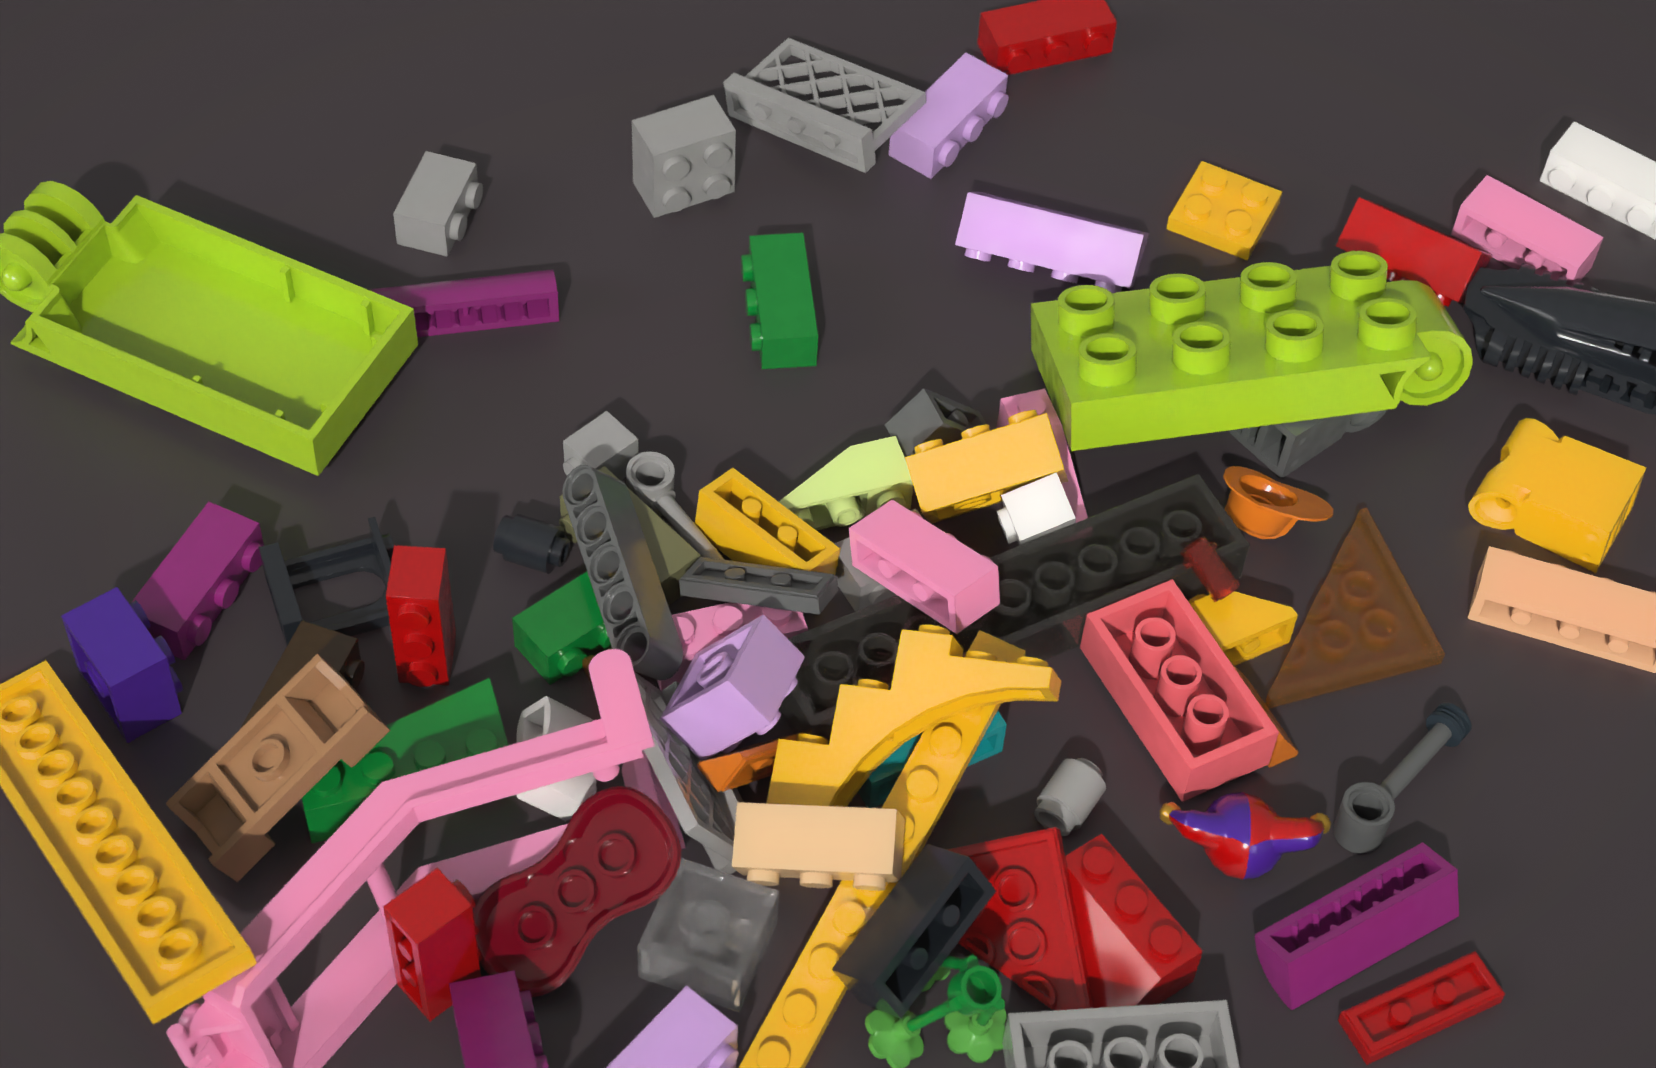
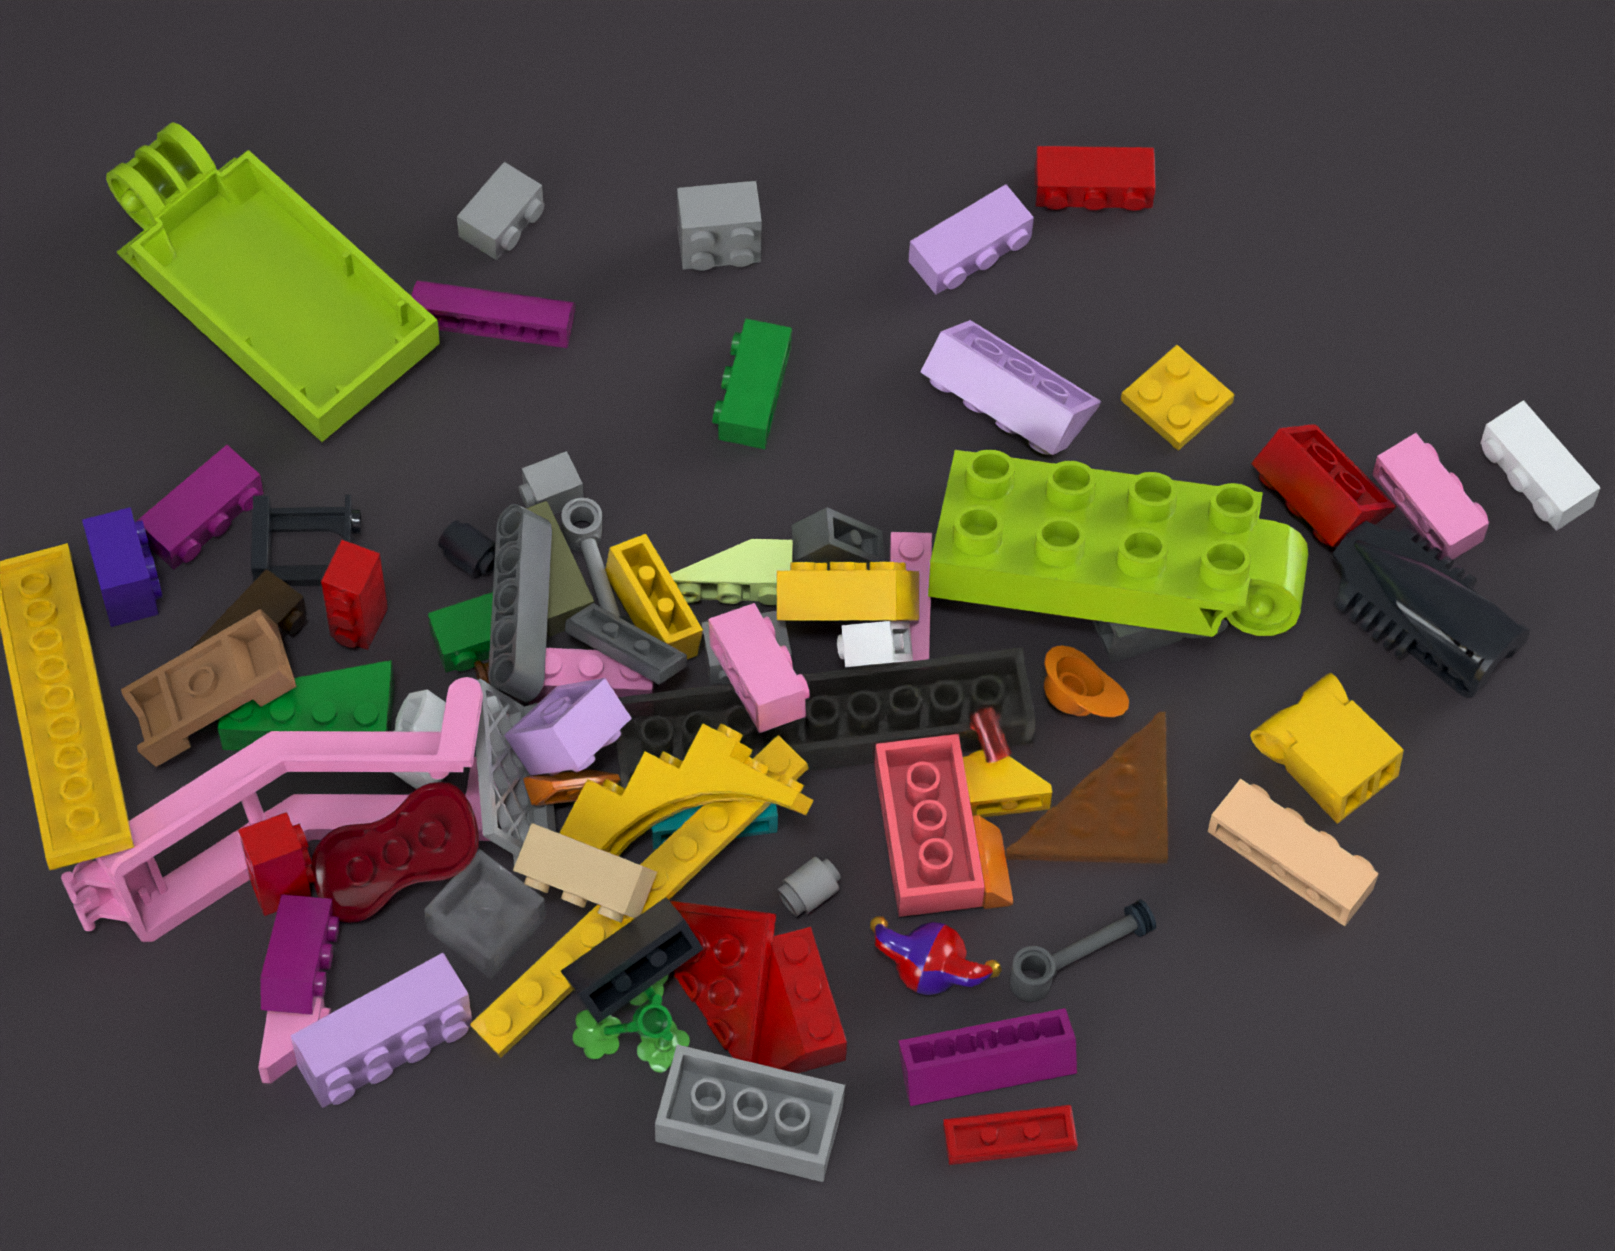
camera: 20 degrees right, 10 degrees up
(808, 121) = (834, 210): light grey fence -> none

